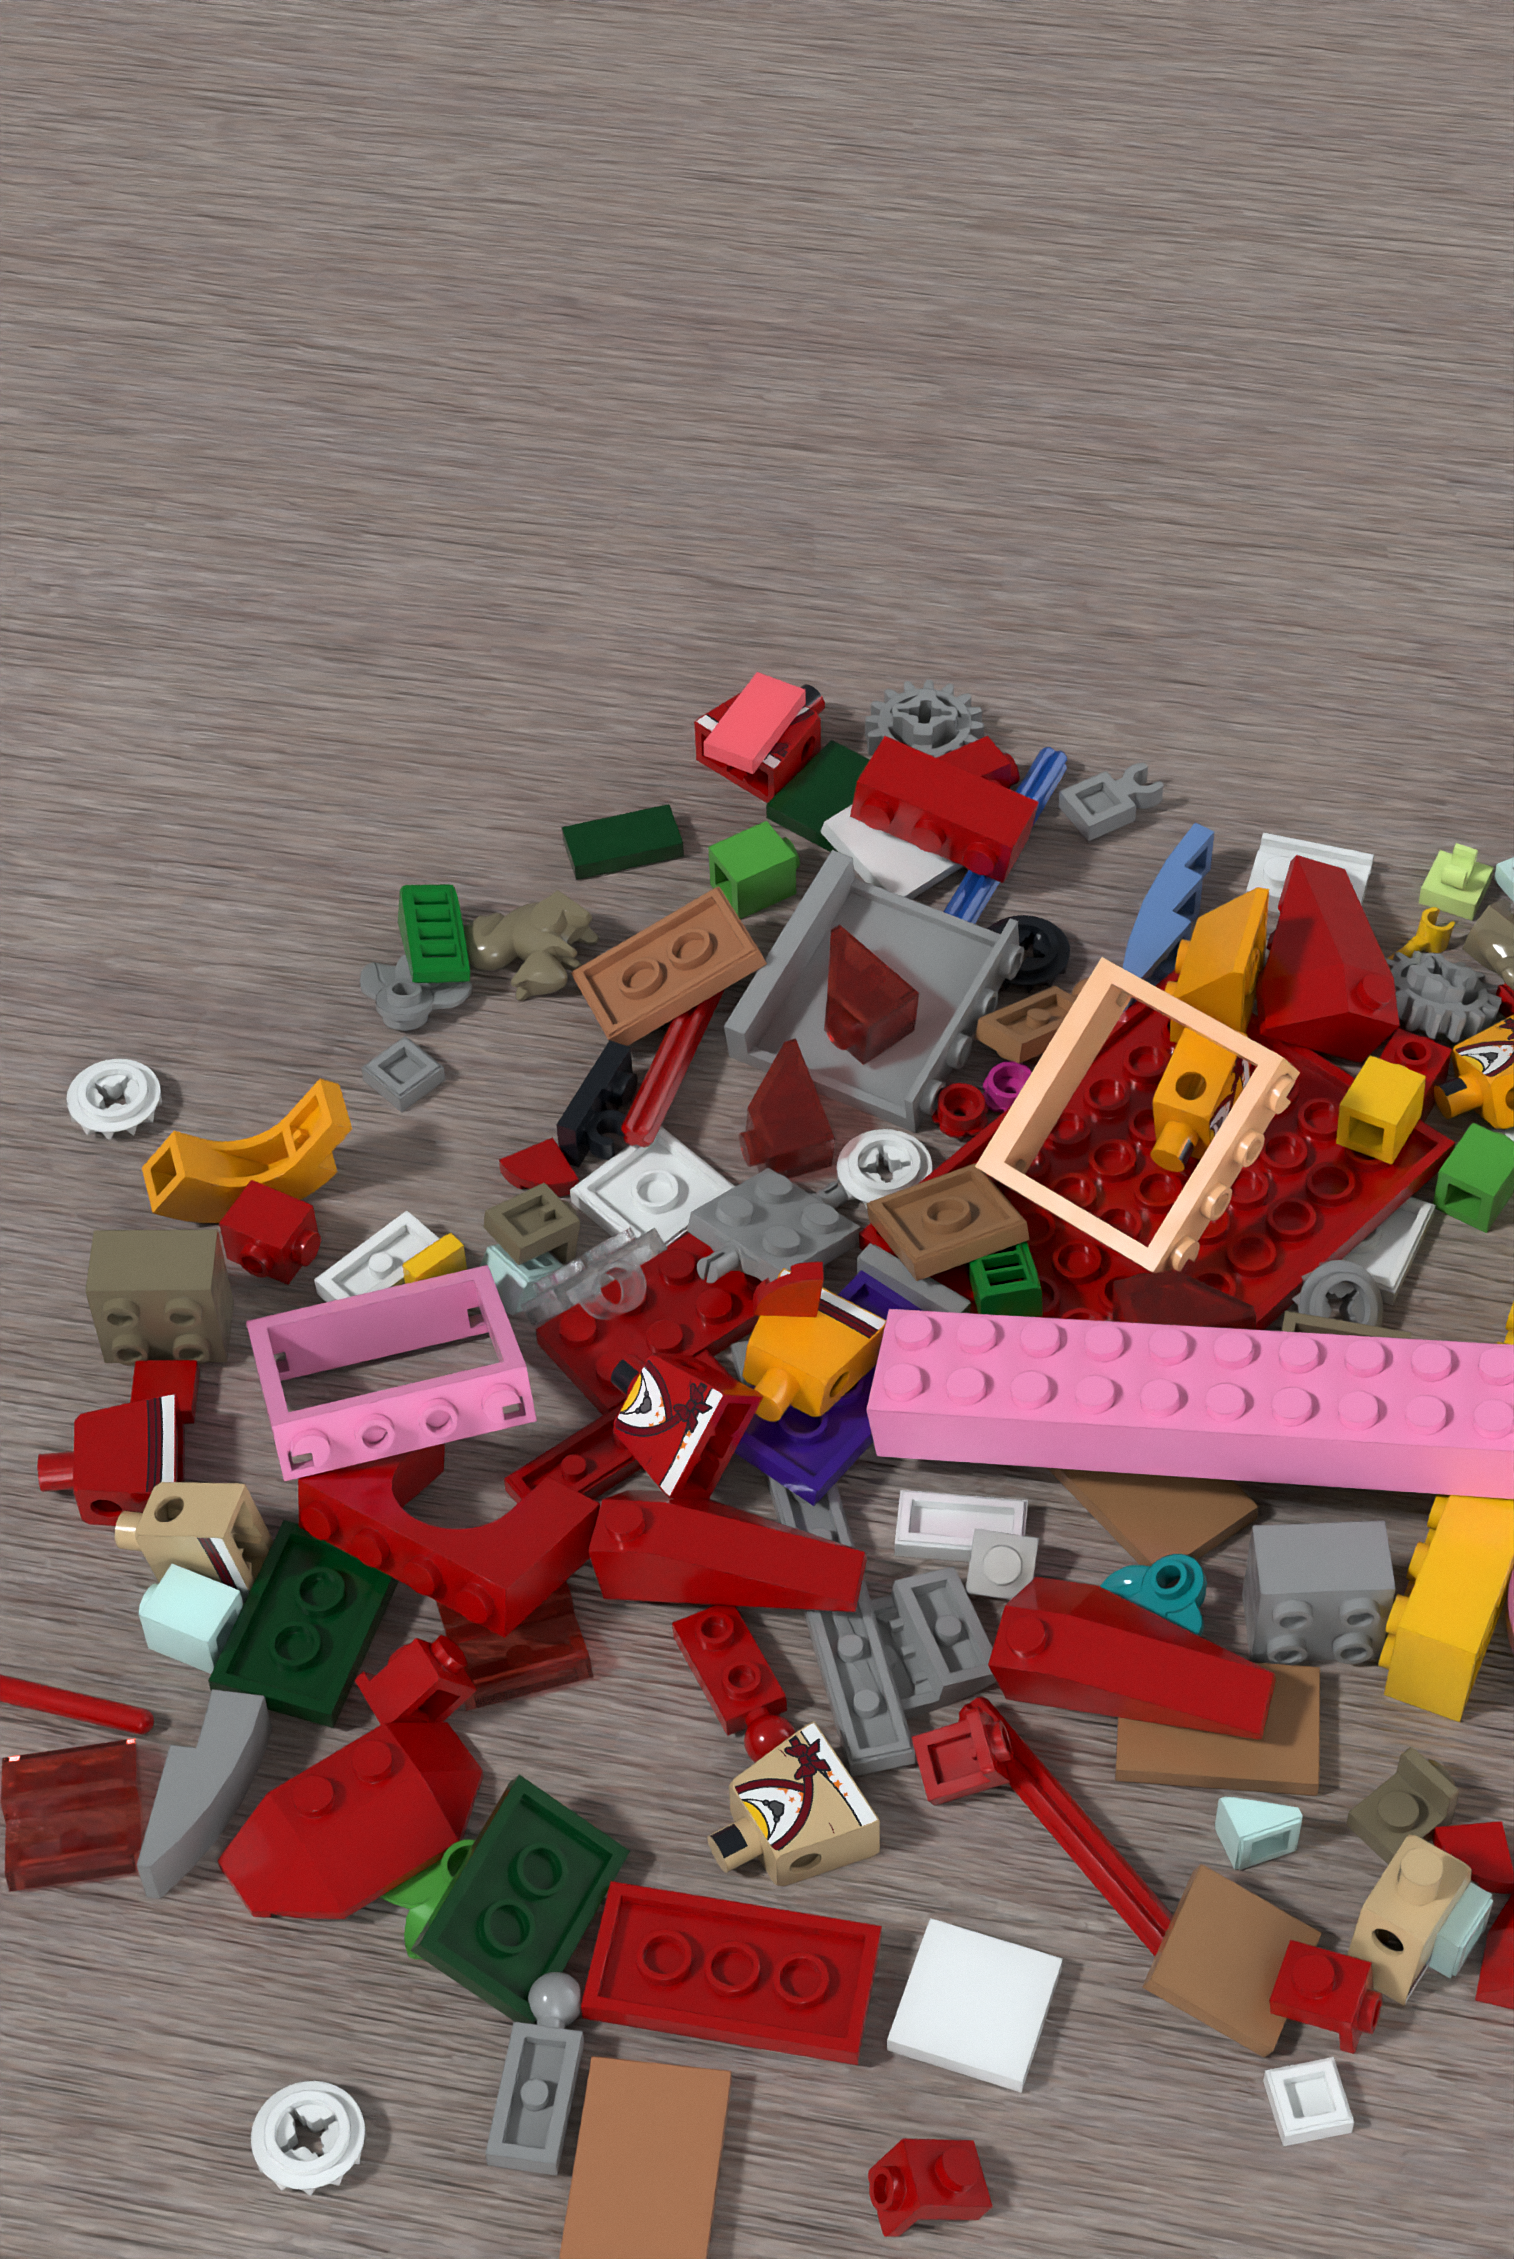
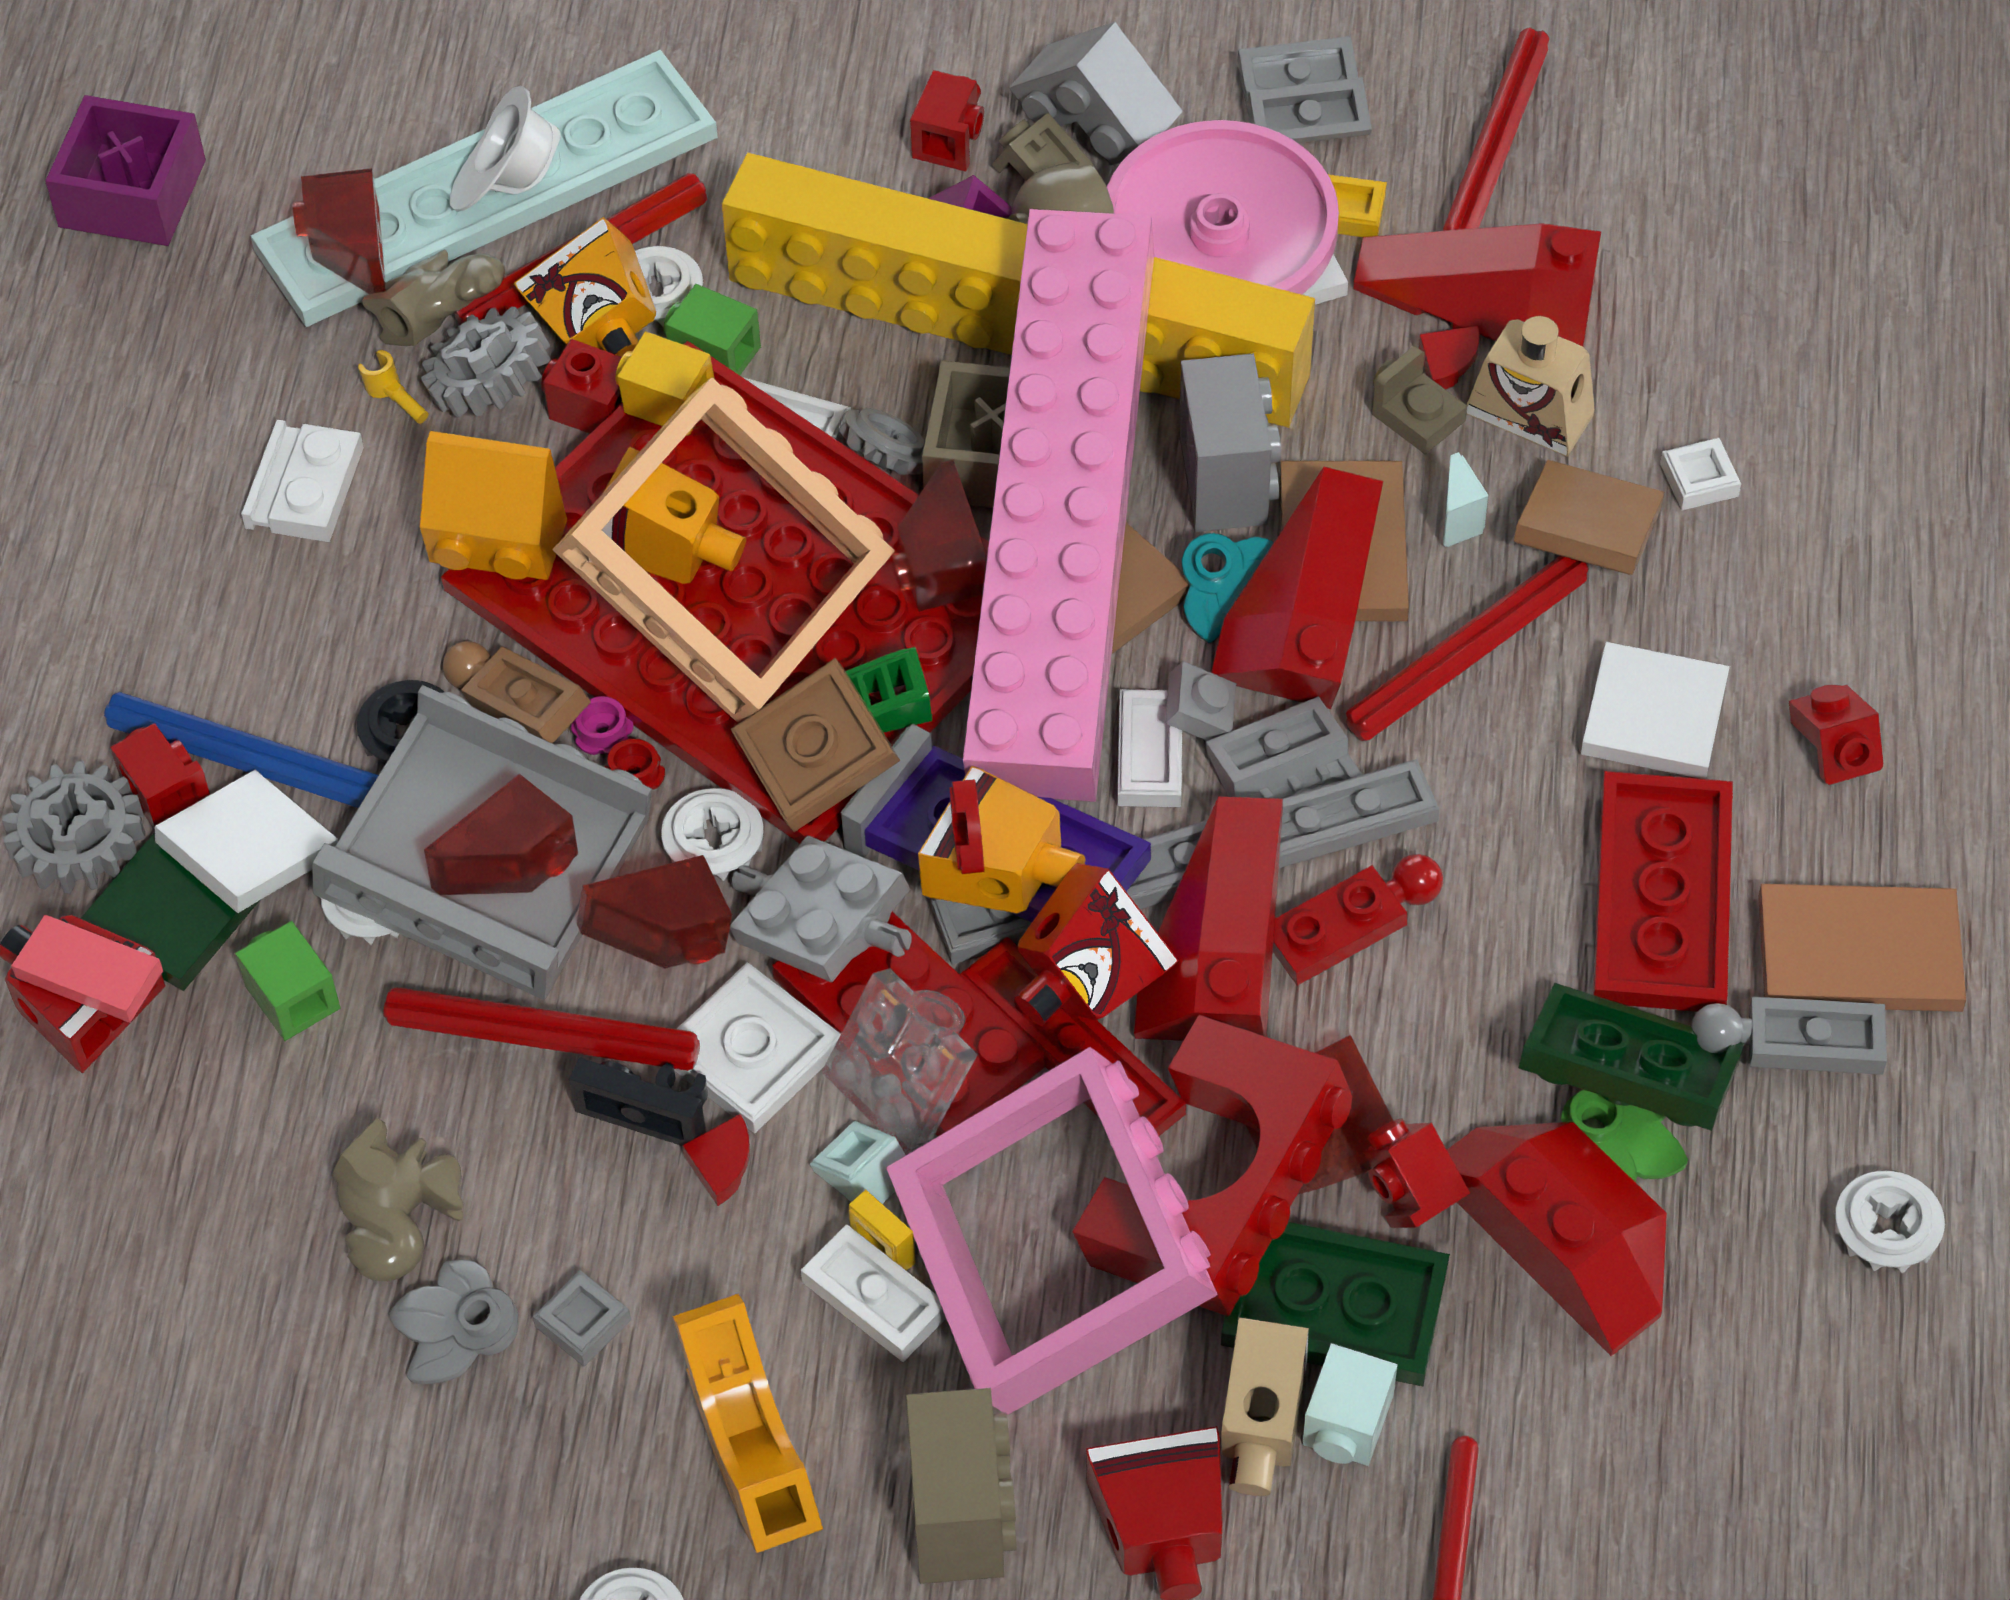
camera: 95 degrees left, 5 degrees up
(72, 1814) = (1583, 1493): clear red slope -> none
(168, 1377) = (1049, 1496): red tile -> none
(203, 1788) = (1549, 1363): light grey slope -> none
(270, 1233) = (836, 1409): red brick -> none
(433, 927) = (351, 1293): green slope -> none
(534, 1225) = (824, 1133): dark tan bracket -> none
(622, 841) = (224, 1128): dark green tile -> none
(668, 968) = (451, 1040): nougat tile -> none
(797, 1813) = (1495, 848): torso -> none
(943, 809) = (235, 775): red brick -> none
(963, 1757) = (1421, 714): red bracket -> none
(1106, 804) = (187, 655): light grey plate -> none
(1169, 908) = (392, 601): medium blue slope -> none
(1325, 968) = (501, 405): red wedge -> none
(1327, 1992) = (1613, 446): red bracket -> none
(1456, 882) = (312, 357): yellowish green tile -> none

